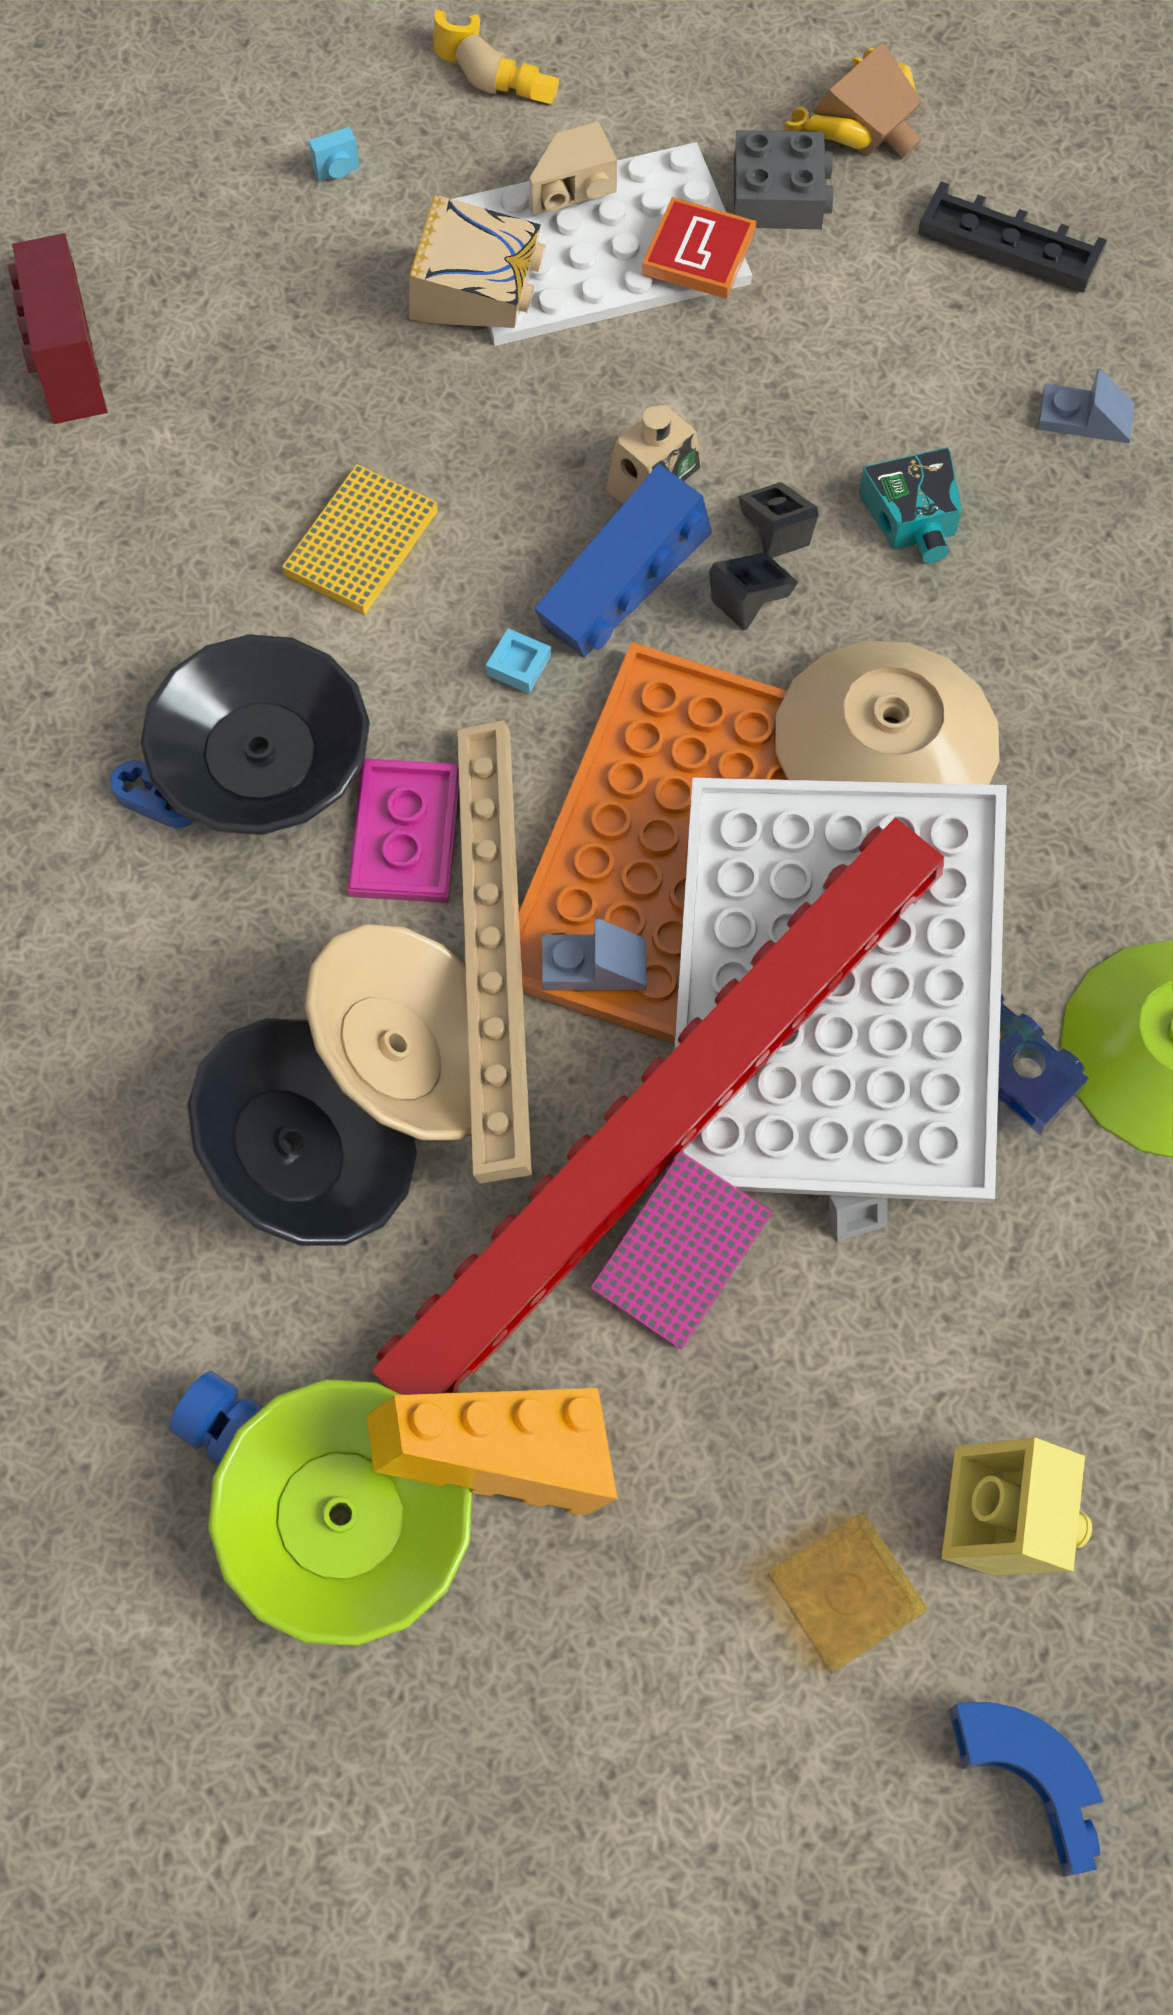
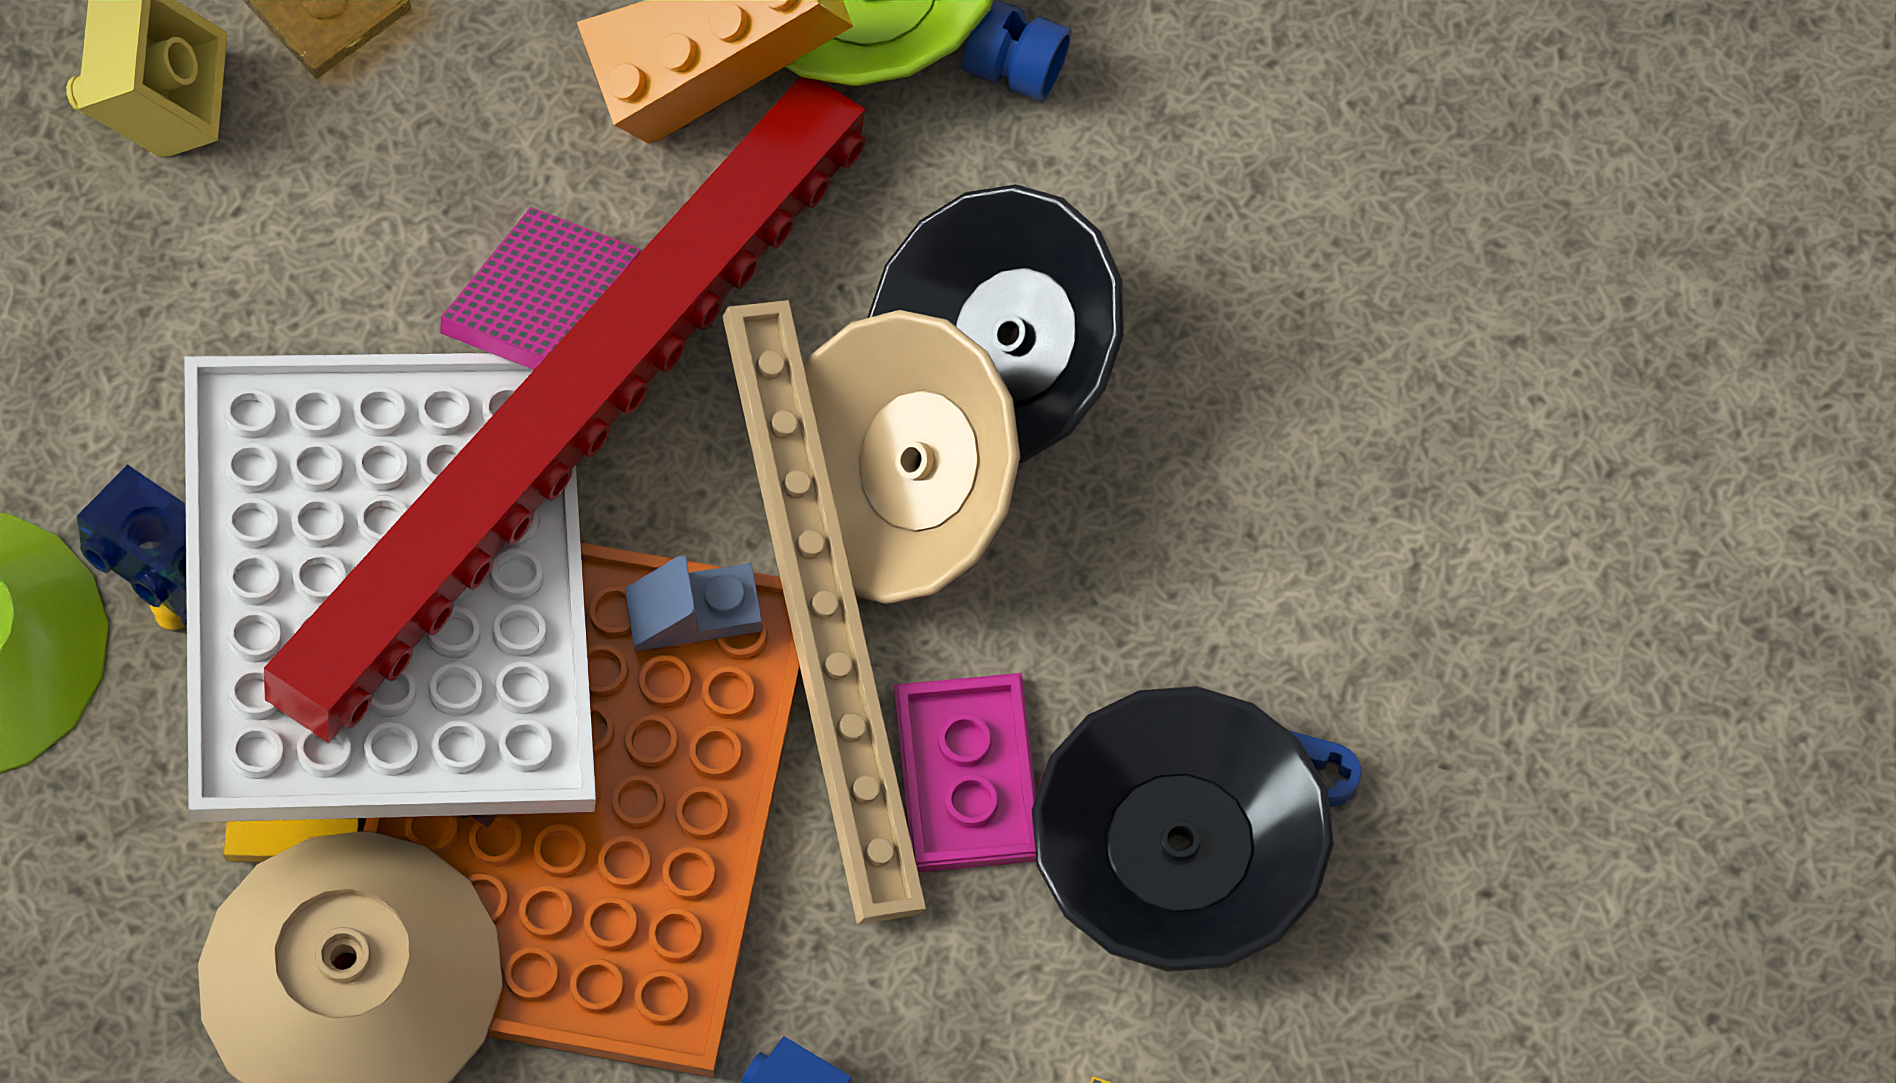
camera: 170 degrees right, 0 degrees up
(518, 661) = (863, 1027): medium azure plate -> none

